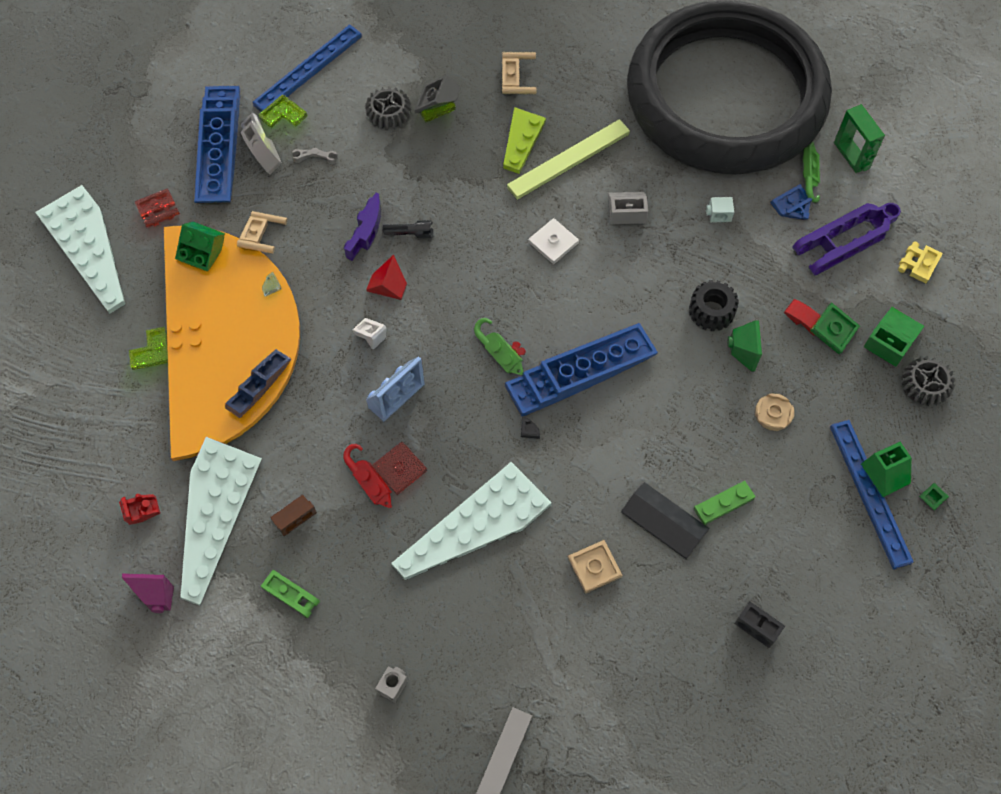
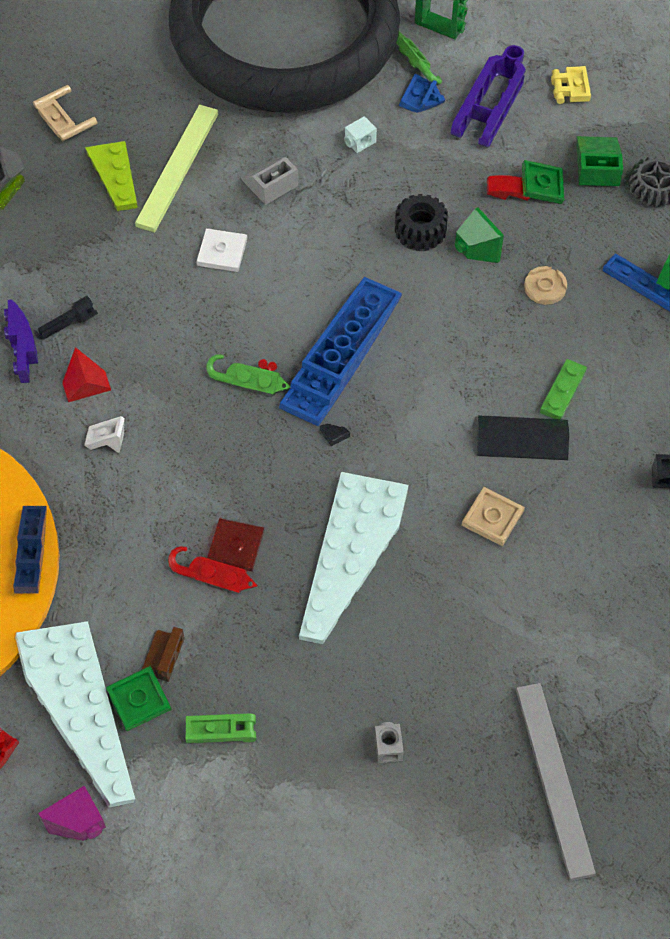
camera: 35 degrees left, 5 degrees down
(253, 535) = (138, 698): none -> green plate
(396, 389) = (177, 470): light blue slope -> none

